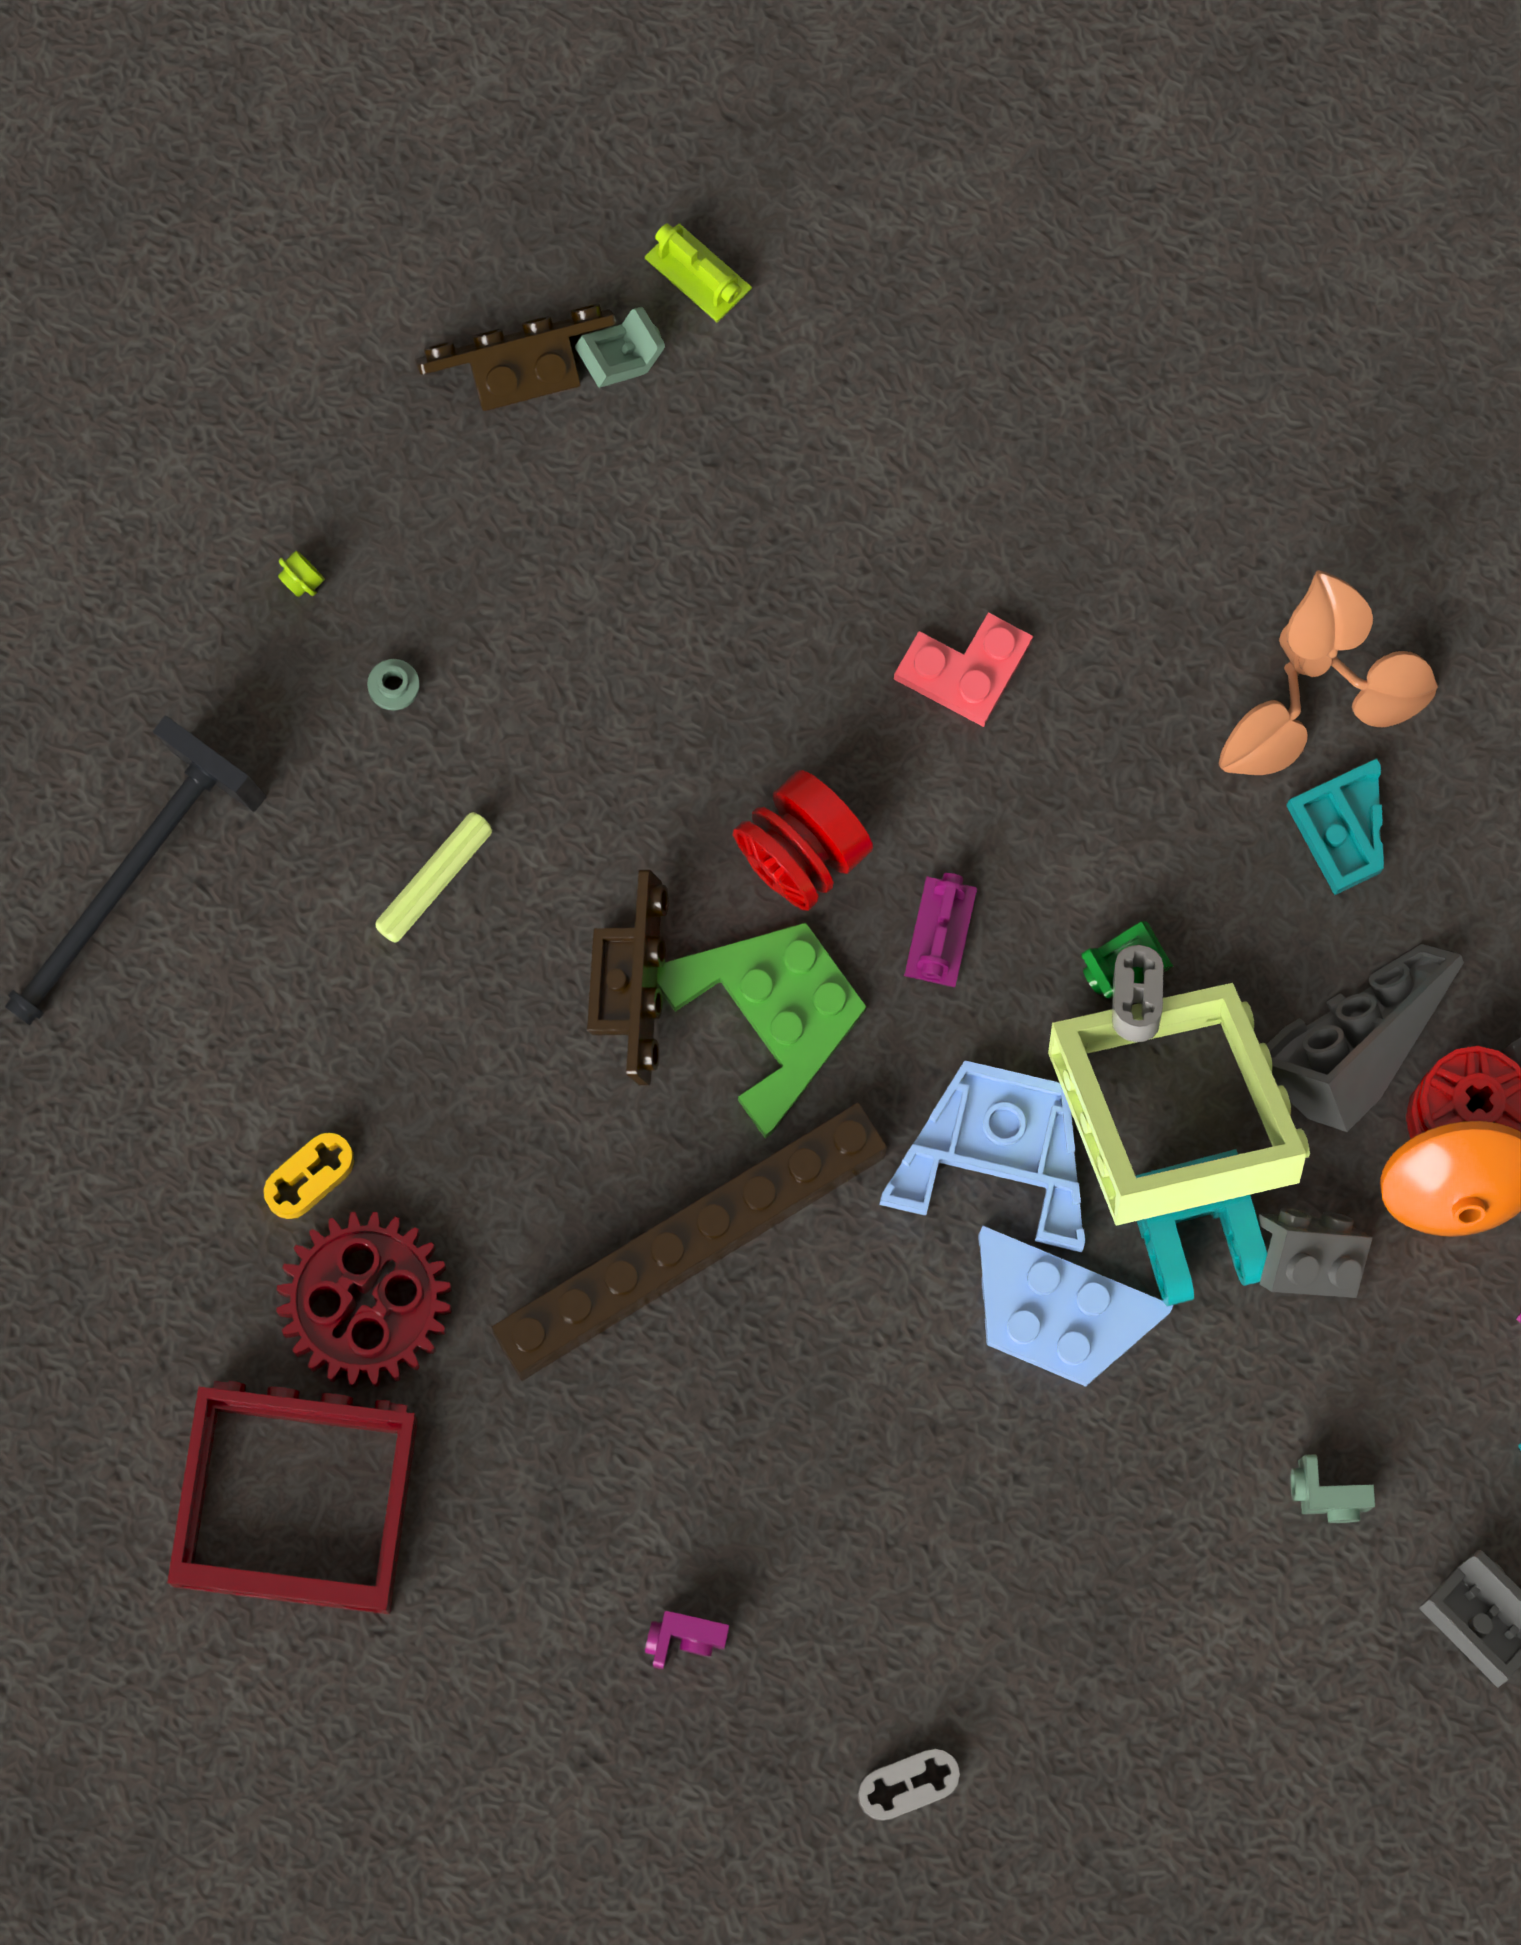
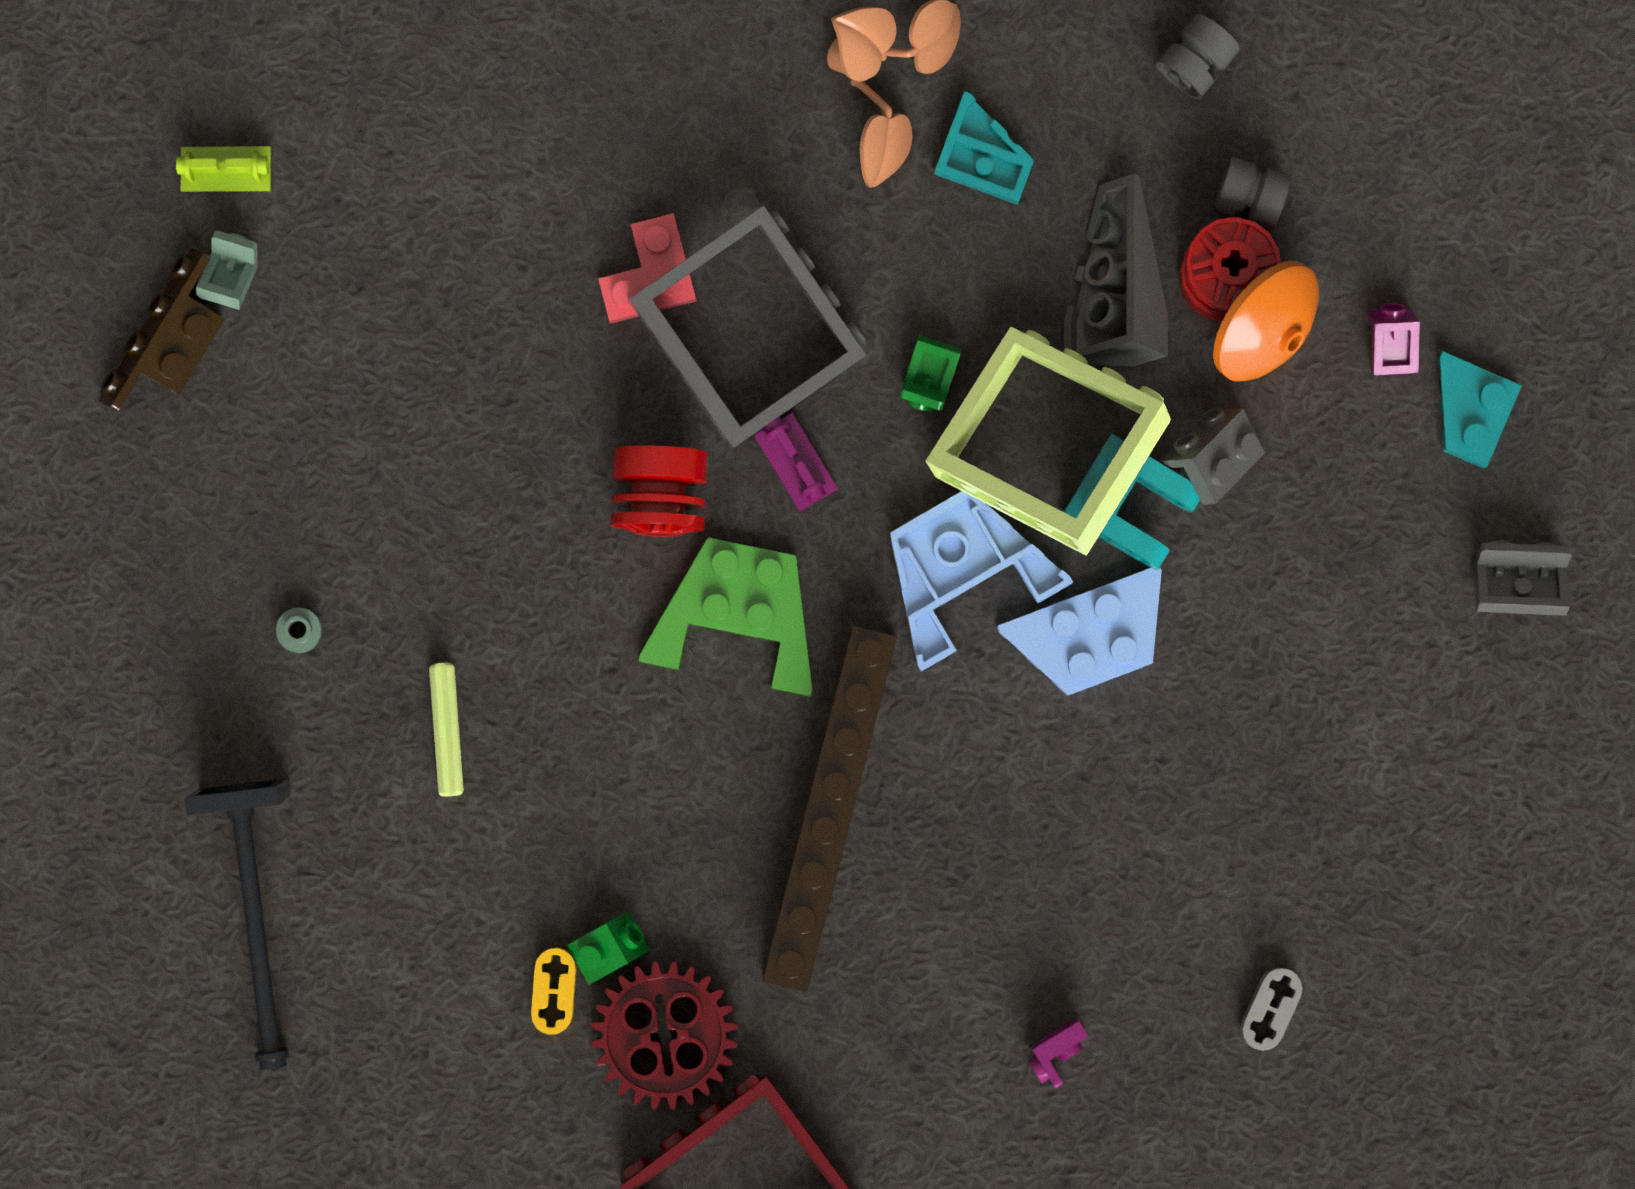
camera: 45 degrees left, 10 degrees up
(300, 574) = (168, 615): lime plate -> none
(390, 1182) = (608, 947): none -> green bracket
(624, 979) = (632, 682): dark brown bracket -> none
(1098, 771) = (821, 298): none -> dark grey window
(1127, 992) = (968, 385): light grey beam -> none
(1339, 1502) = (1370, 592): sand green bracket -> none

